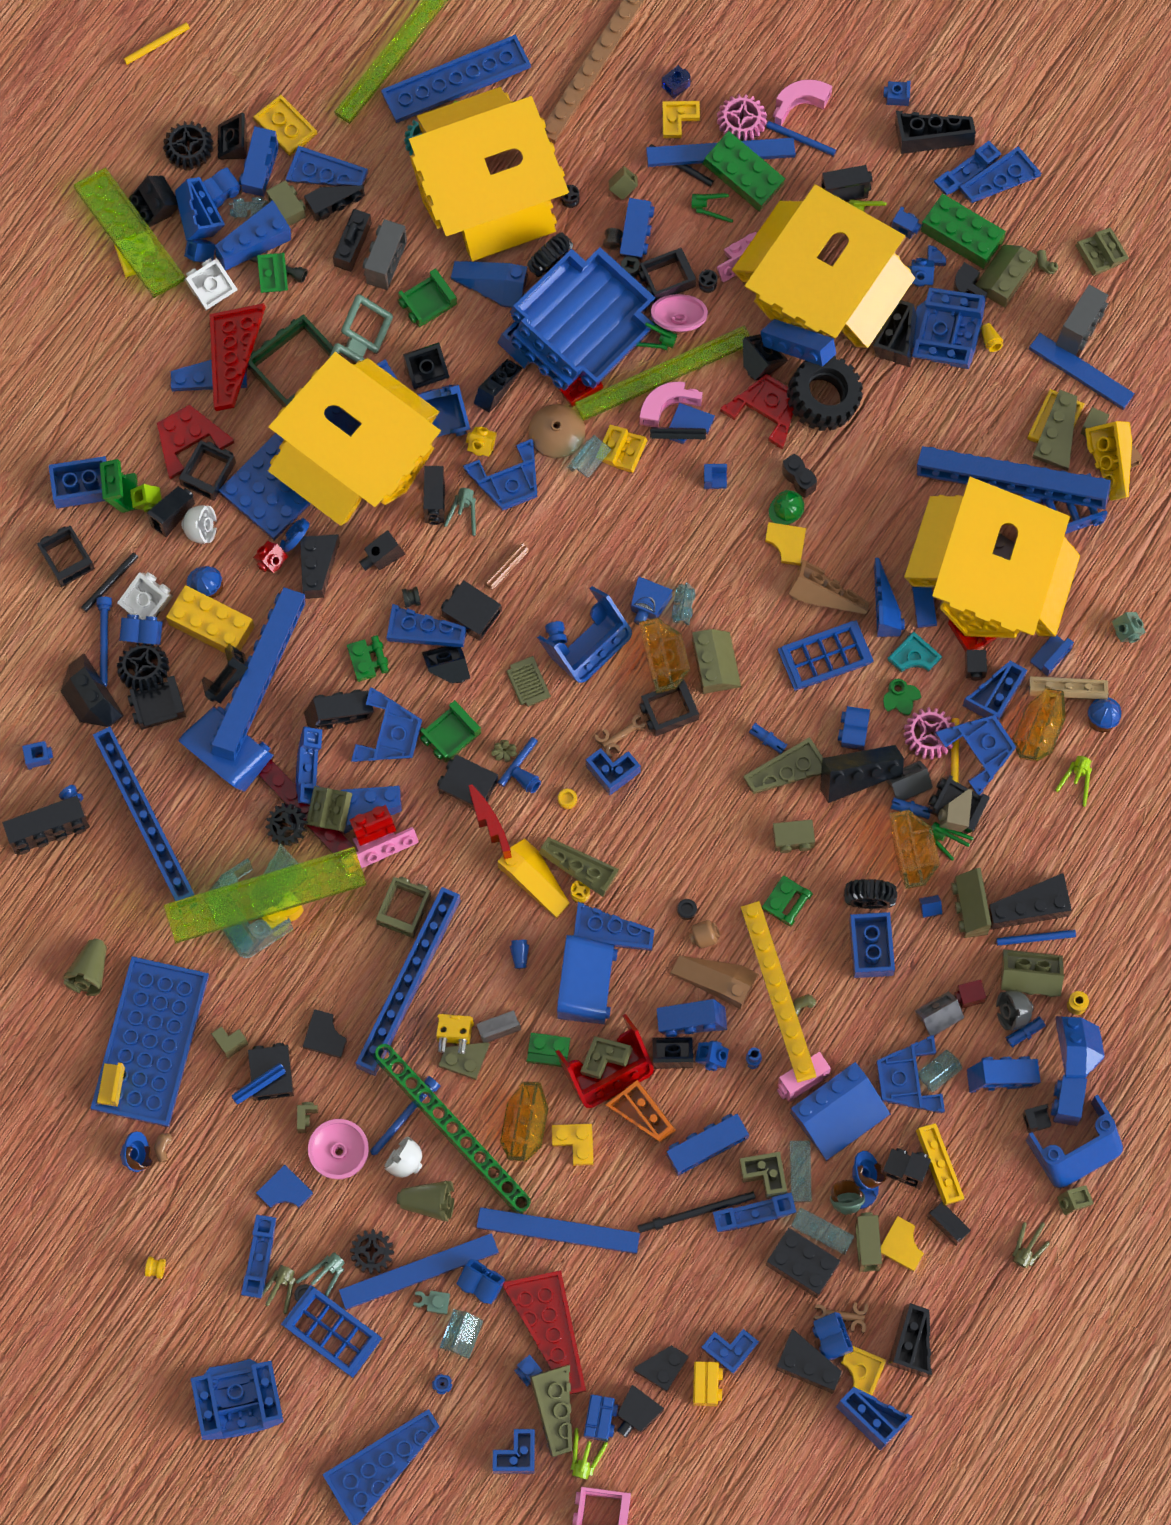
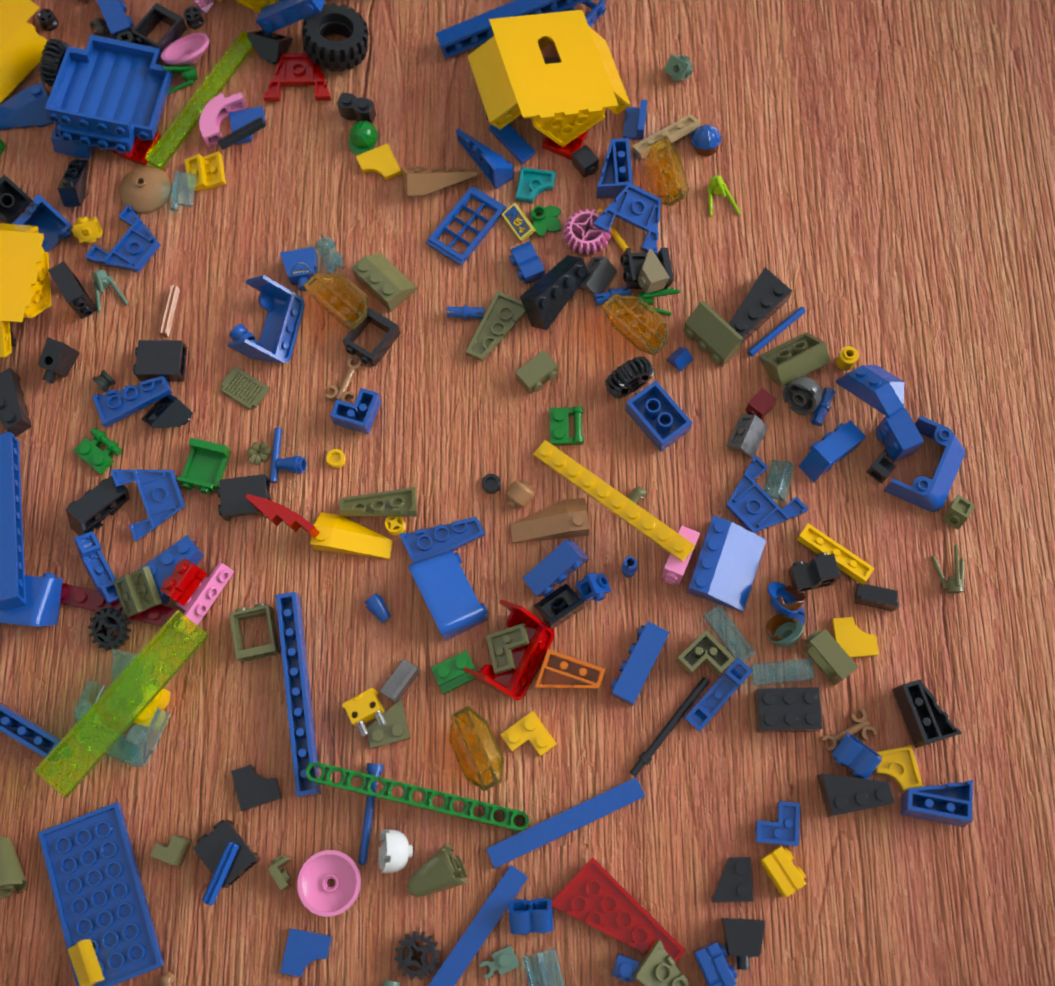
camera: 30 degrees left, 0 degrees up
(715, 476) = (291, 147): blue panel -> none
(874, 683) = (518, 222): none -> tile

